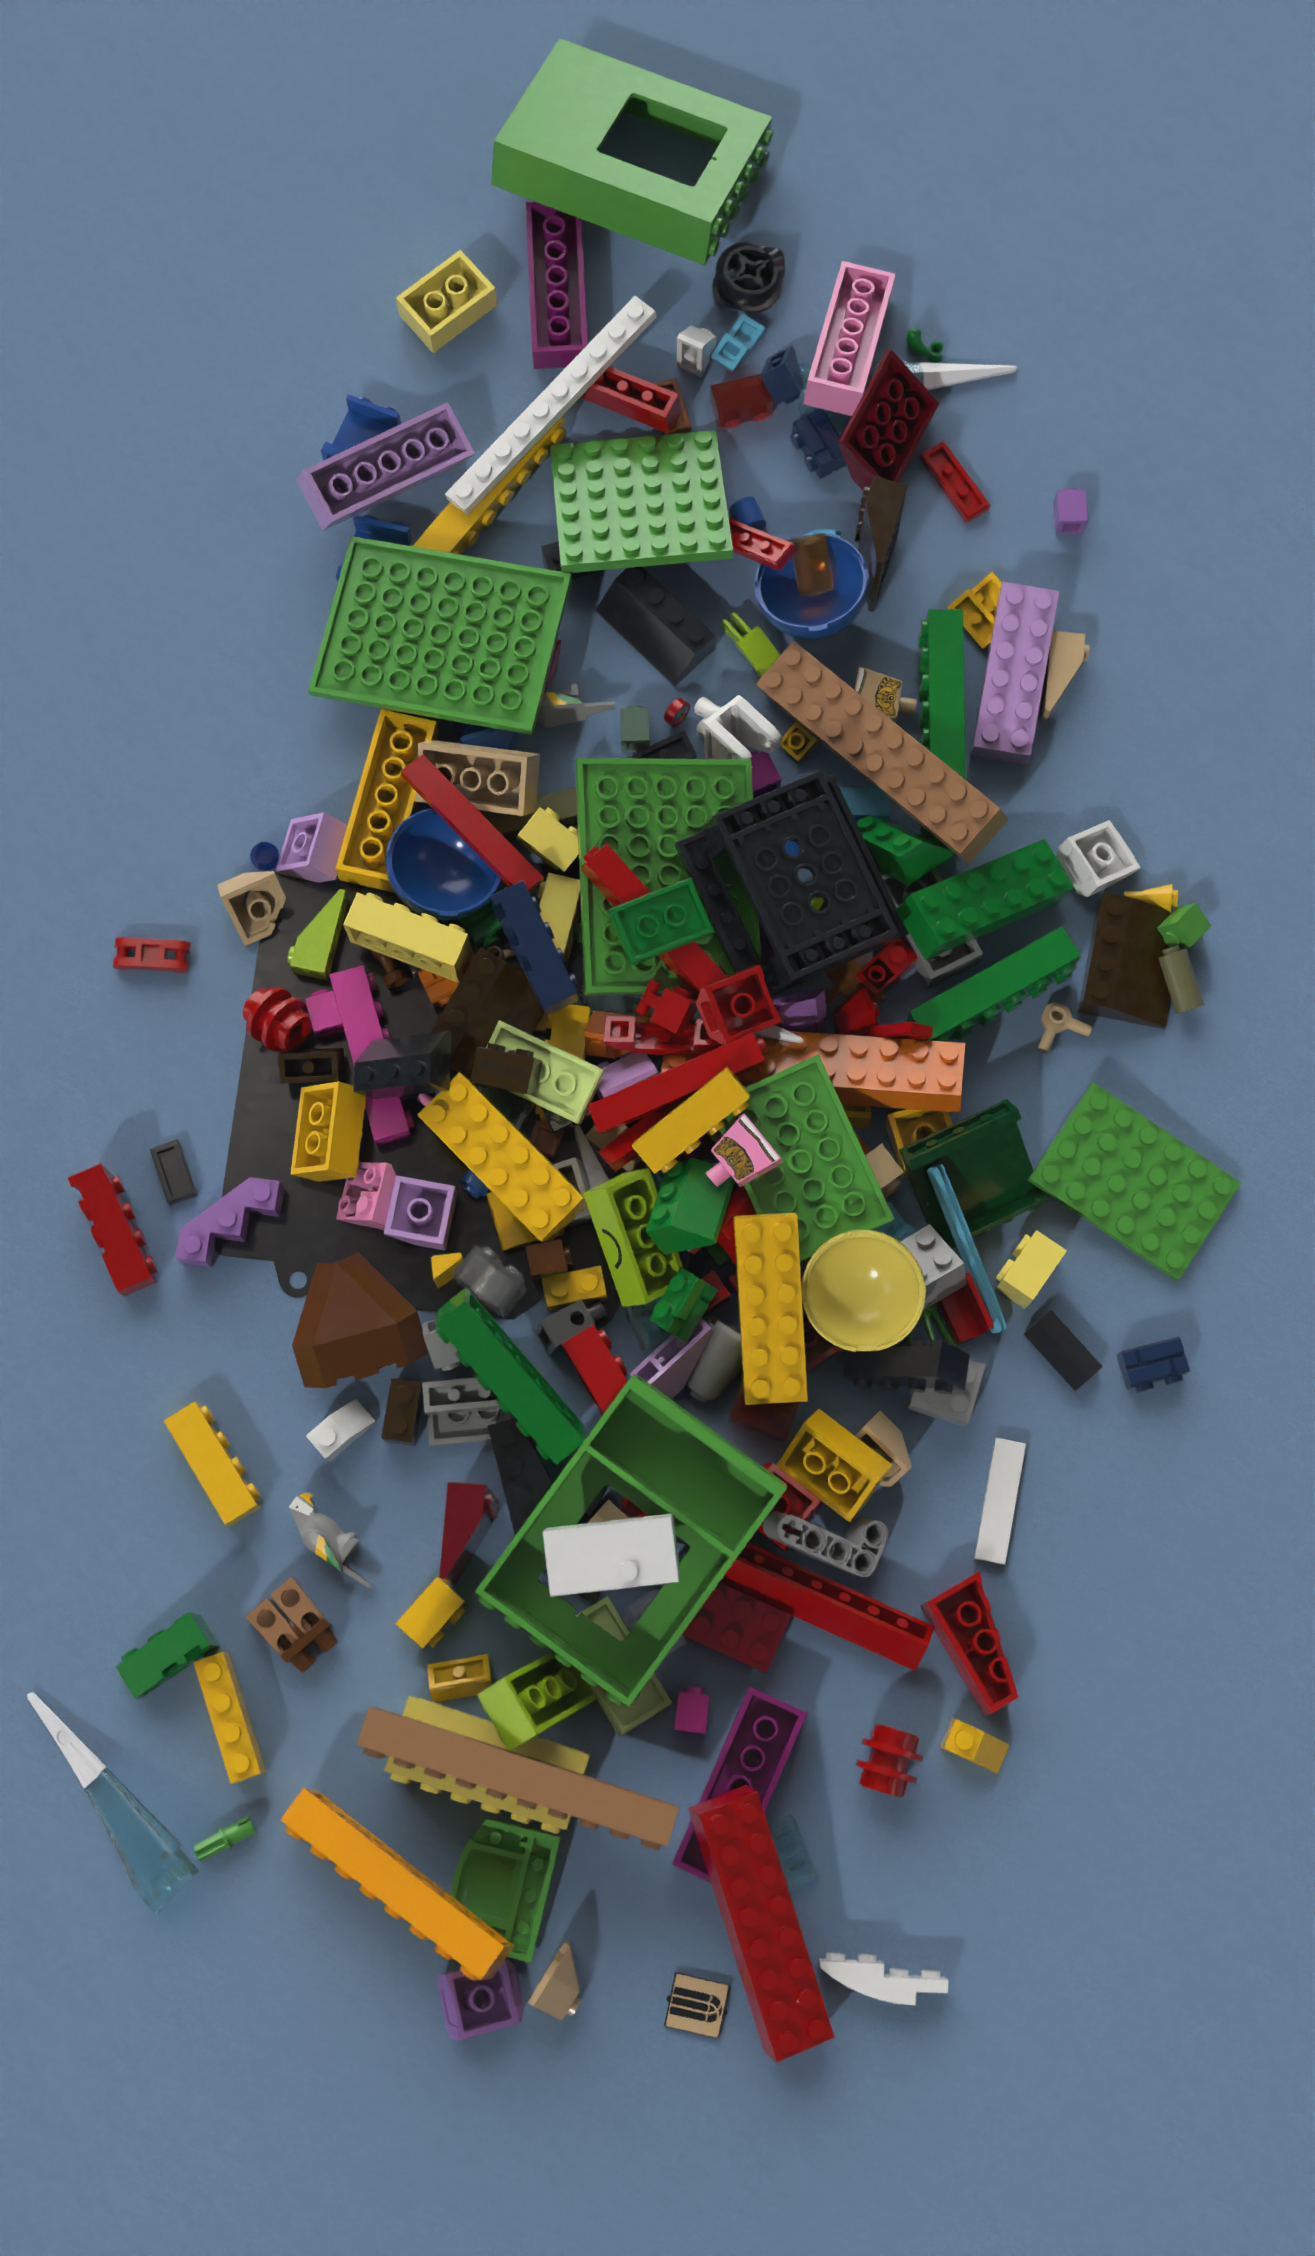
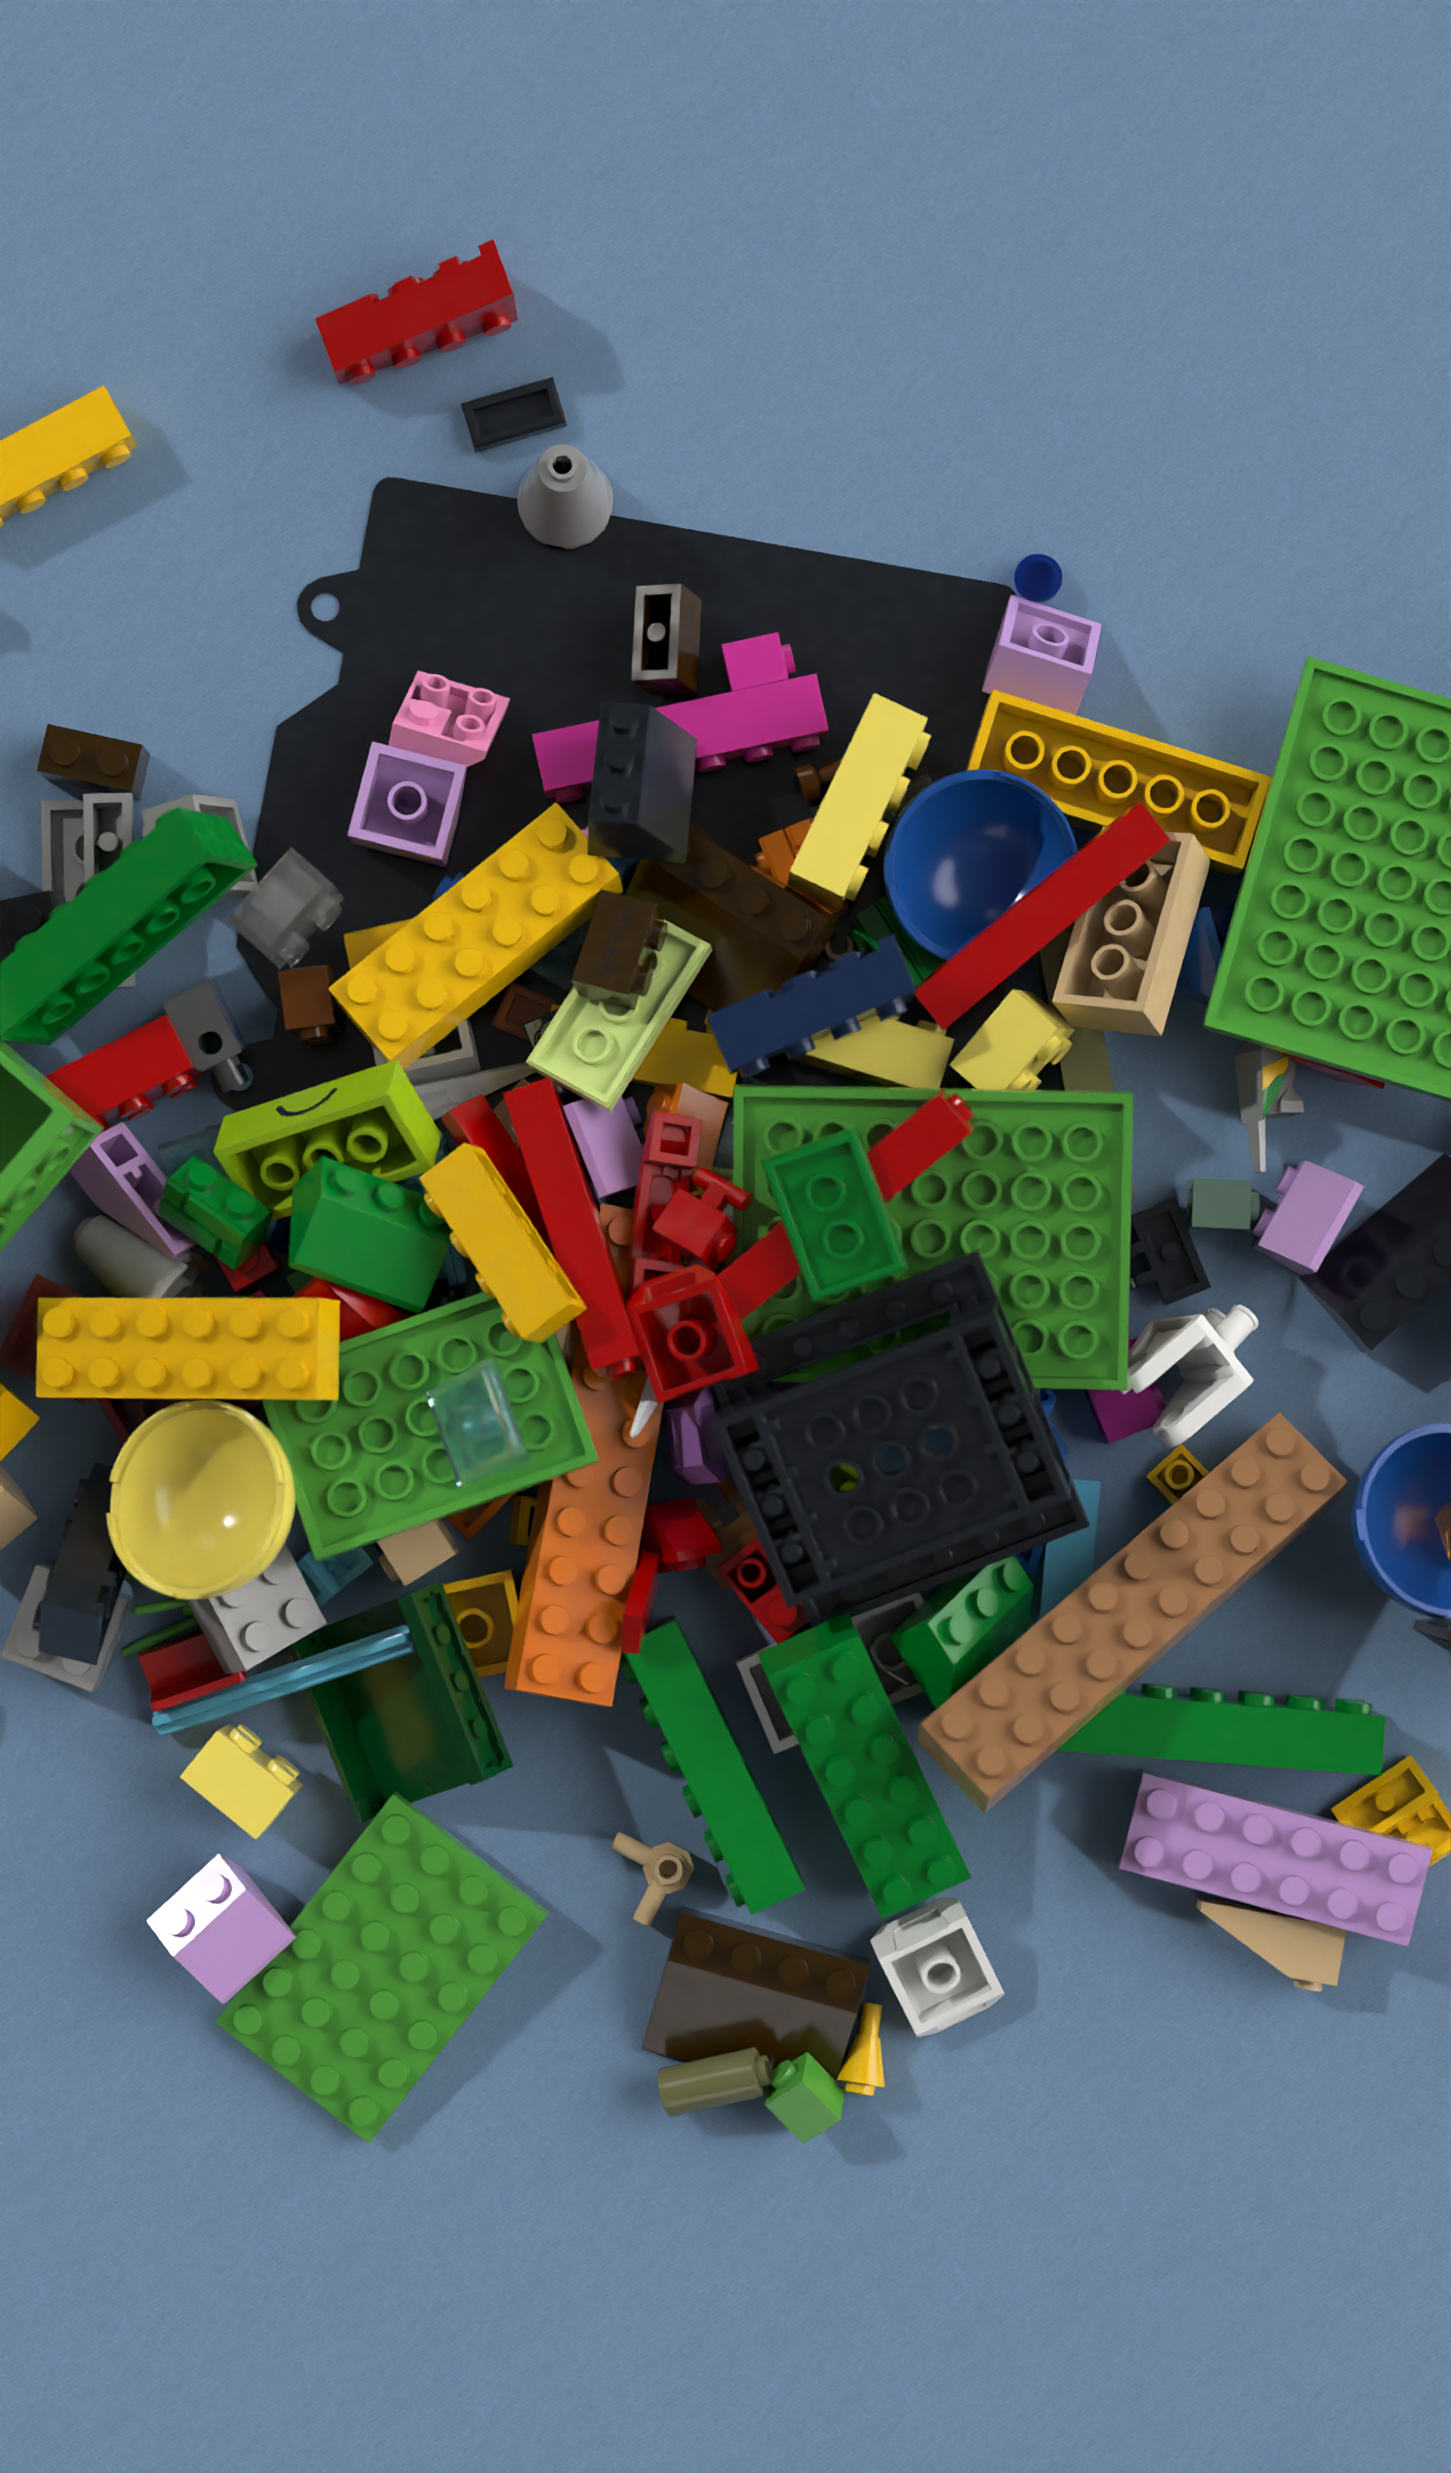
camera: 90 degrees right, 10 degrees up
(151, 954) = (879, 388): red plate -> none
(225, 1135) = (565, 498): none -> light grey cone
(228, 1219) = (421, 497): medium lavender brick -> none
(253, 903) = (951, 552): tan slope -> none
(277, 1019) = (745, 585): red piece -> none
(318, 942) = (876, 659): lime slope -> none
(328, 1132) = (547, 660): yellow brick -> none
(340, 1429) = (74, 663): white slope -> none
(354, 1325) = (233, 689): reddish brown panel -> none
(444, 1267) = (315, 837): yellow slope -> none
(573, 1286) = (268, 1048): yellow brick -> none
(639, 676) = (1305, 1216): none -> lavender slope
(676, 712) = (1245, 1277): red tile -> none
(742, 1154) = (438, 1323): torso -> none
(753, 644) = (1355, 1418): lime arm -> none
(803, 1123) = (478, 1423): none -> clear light blue slope
(884, 693) = (1248, 1627): torso -> none
(1063, 1350) = (114, 1820): black piece -> none
(1122, 1276) = (221, 1928): none -> lavender slope
(1153, 1363) = (80, 1965): dark blue brick -> none

